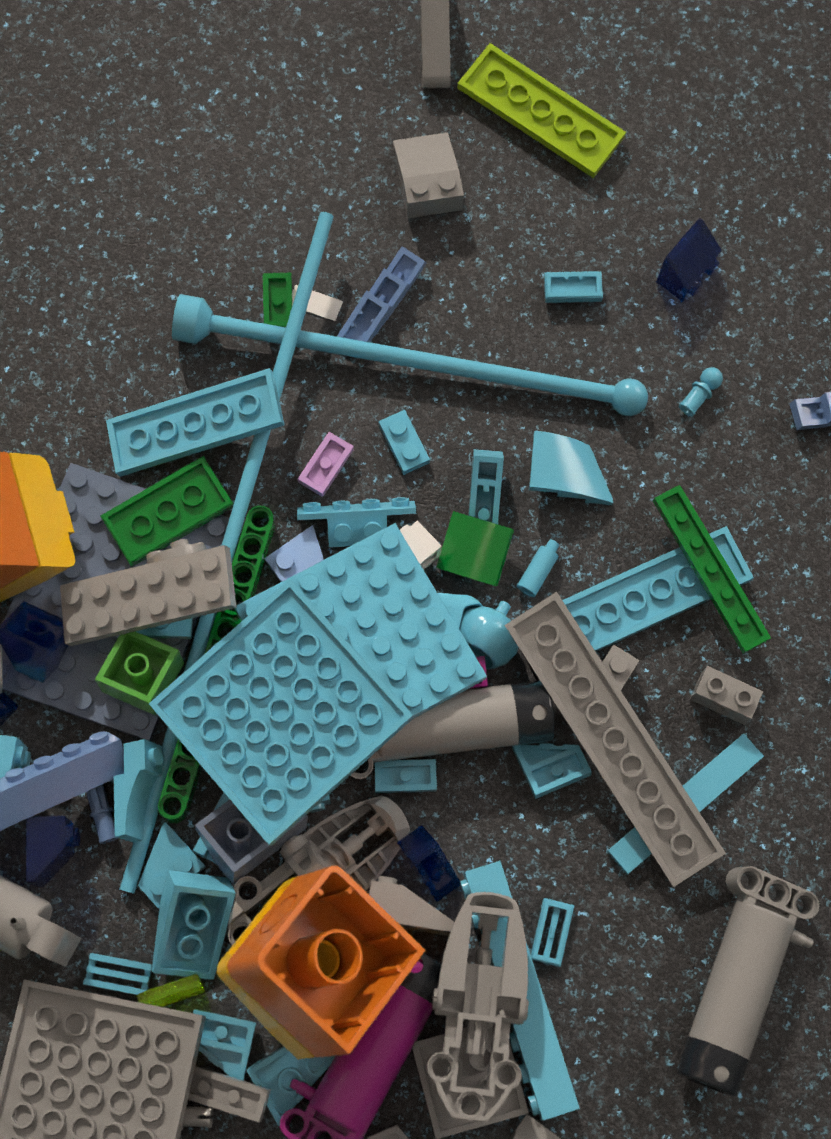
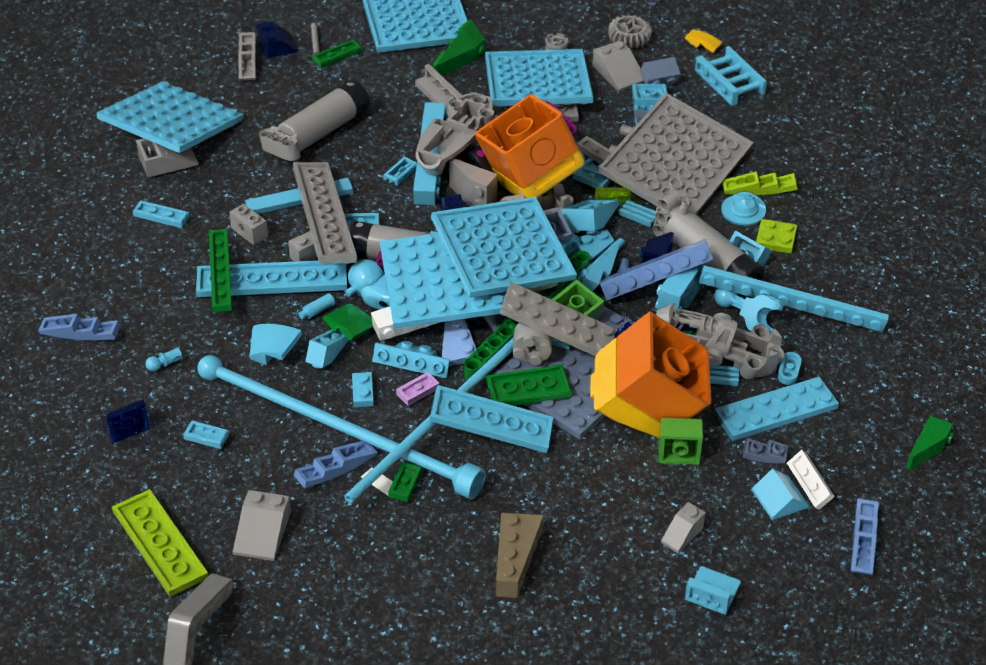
camera: 155 degrees left, 30 degrees down
(93, 246) = (516, 547): none -> dark tan wedge

